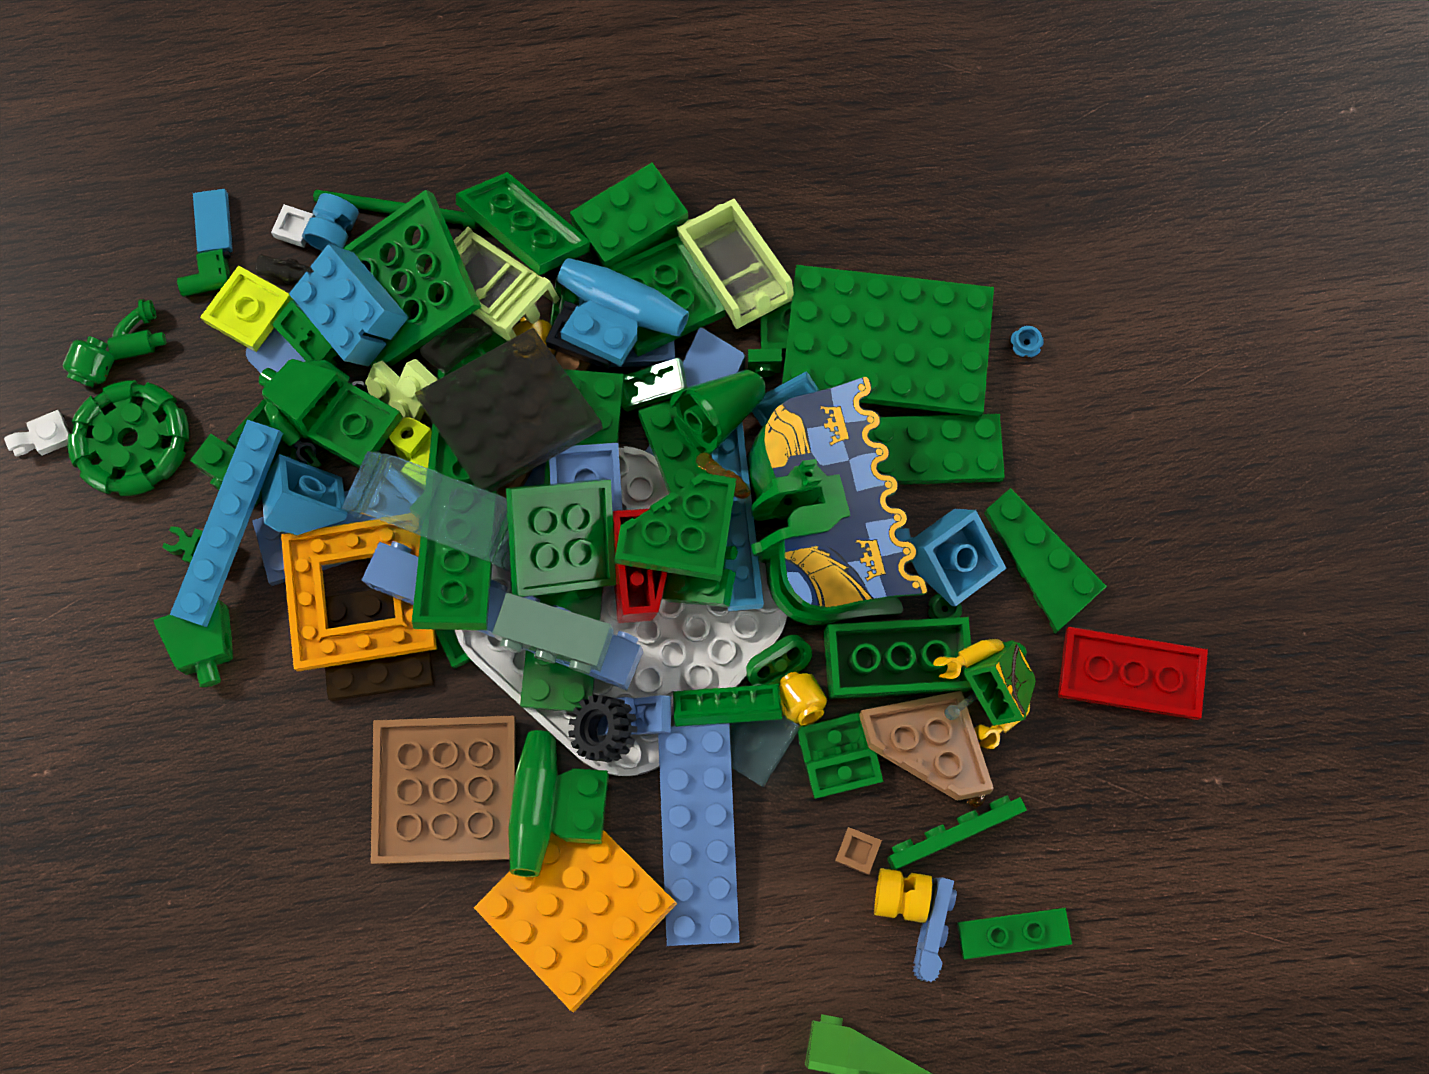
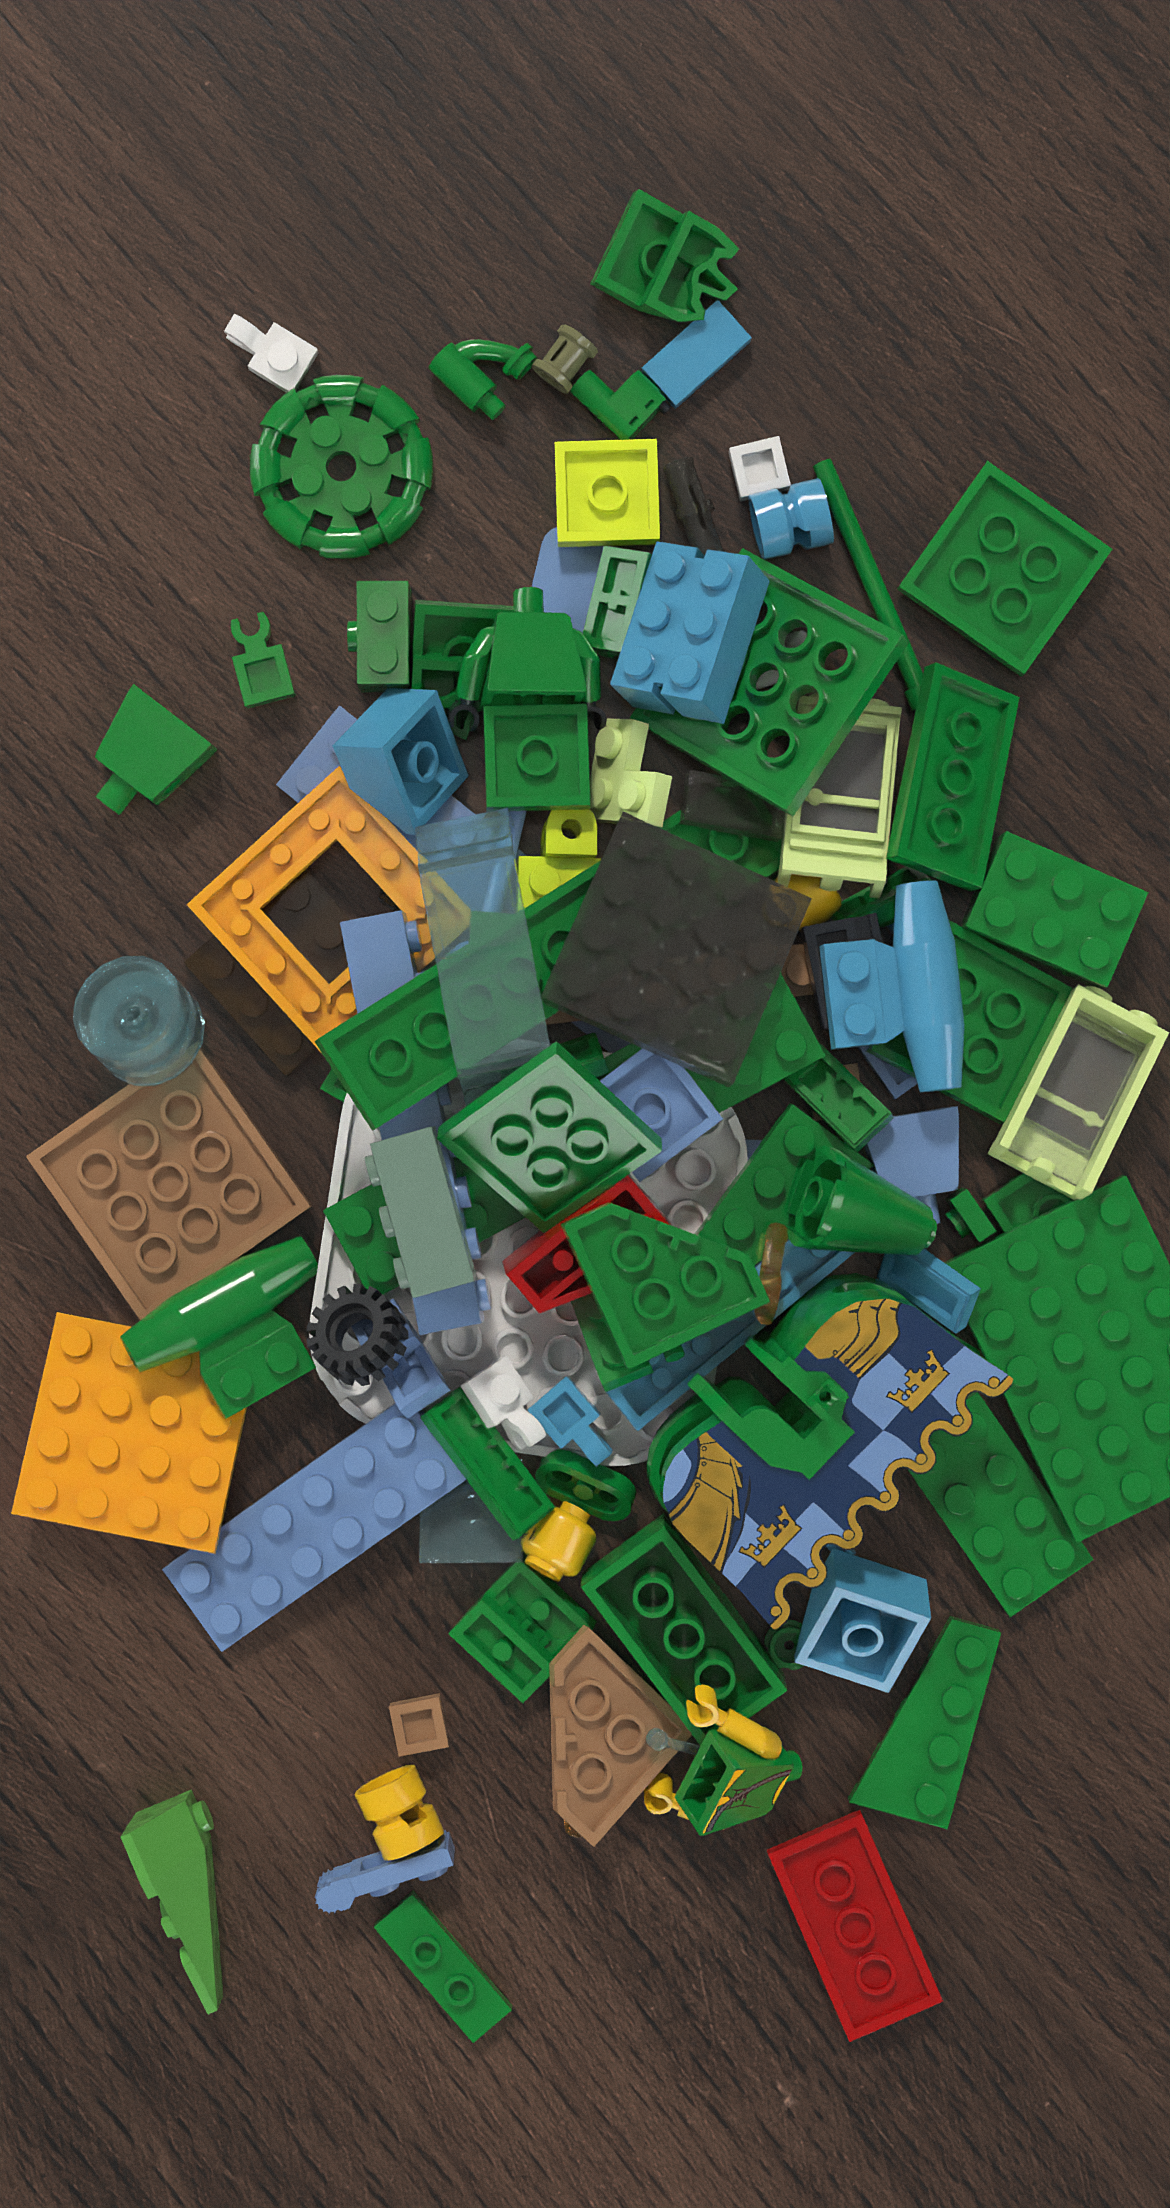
camera: 55 degrees right, 15 degrees up
(88, 361) = (402, 342): green head -> none
(152, 205) = (664, 261): none -> green plate
(162, 286) = (564, 358): none -> olive bush
(226, 523) = (307, 691): dark azure plate -> none
(339, 740) = (138, 1020): none -> clear light blue wheel
(436, 139) = (1004, 569): none -> green plate
(695, 673) = (499, 1398): none -> white plate
(730, 643) = (567, 1416): none -> dark azure plate
(969, 825) = (498, 1817): green plate -> none

